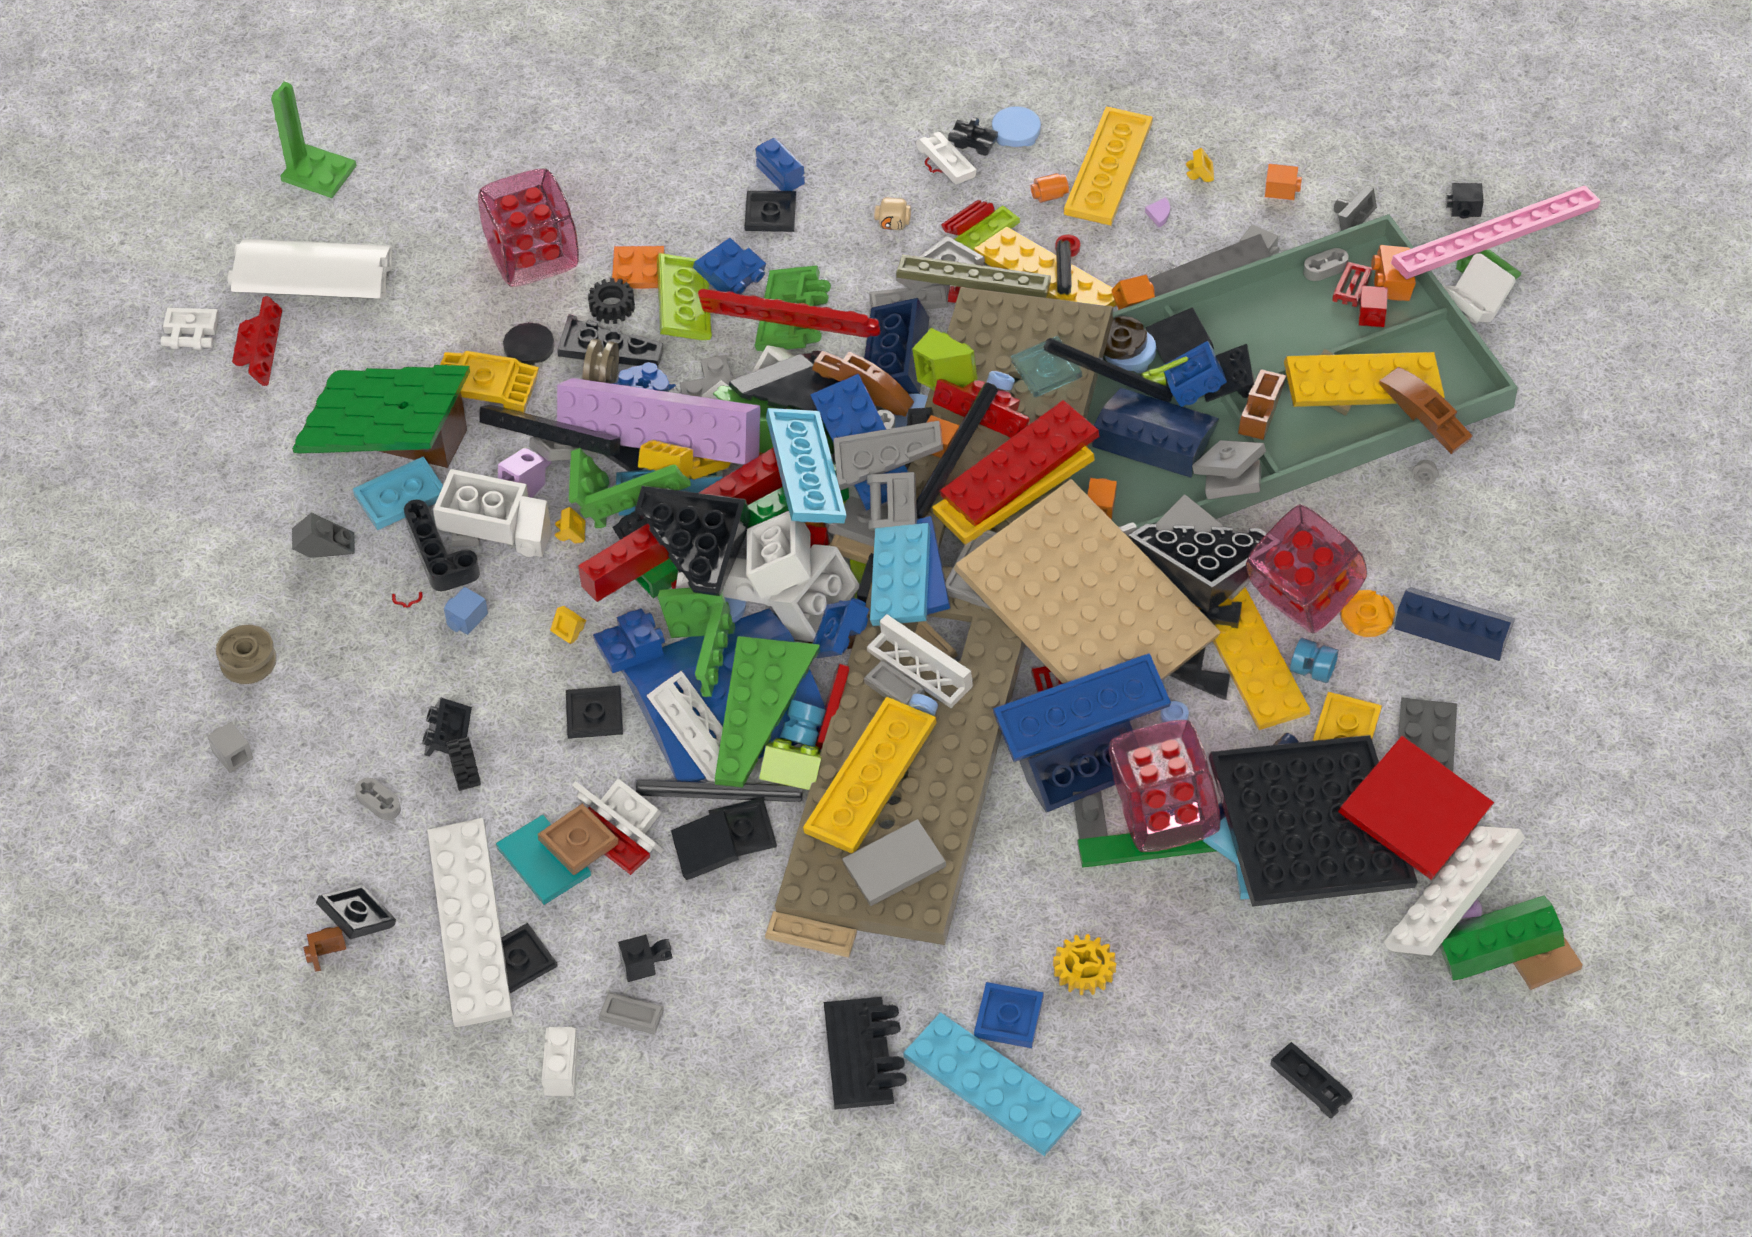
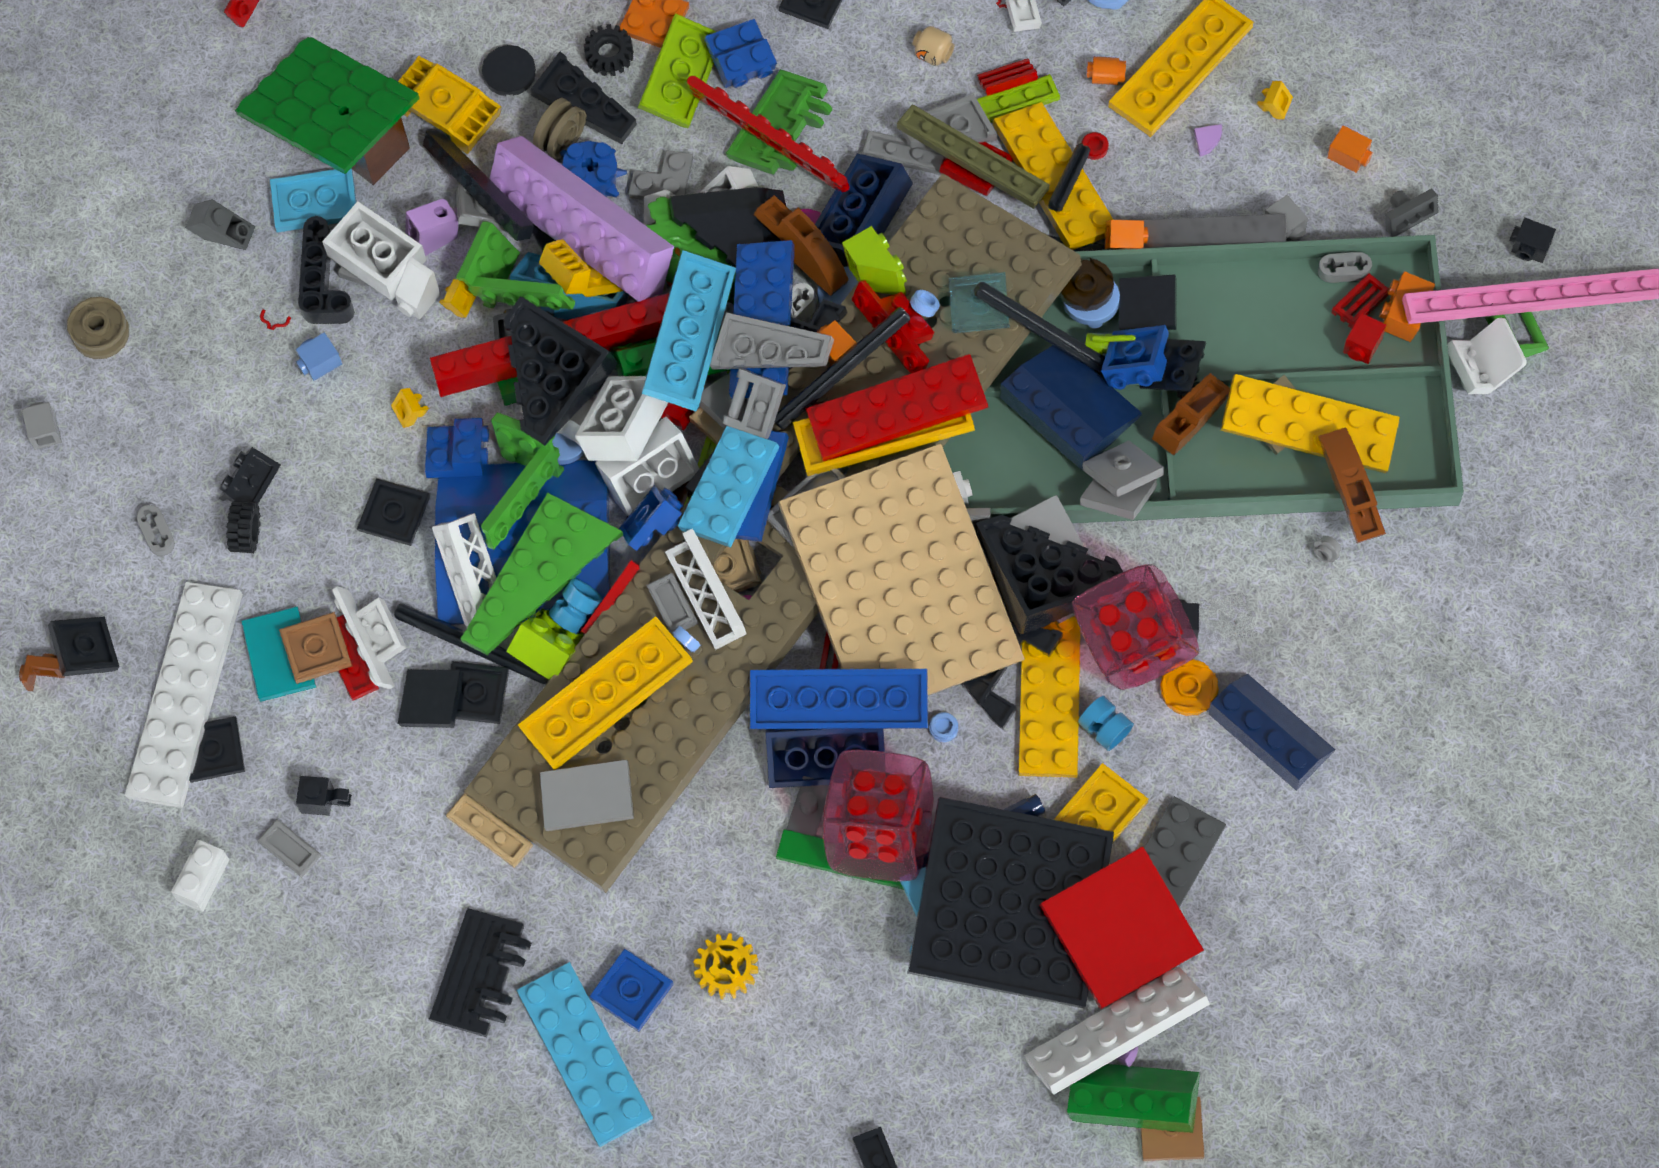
camera: 25 degrees right, 15 degrees up
(1103, 494) = (978, 464): orange brick -> none

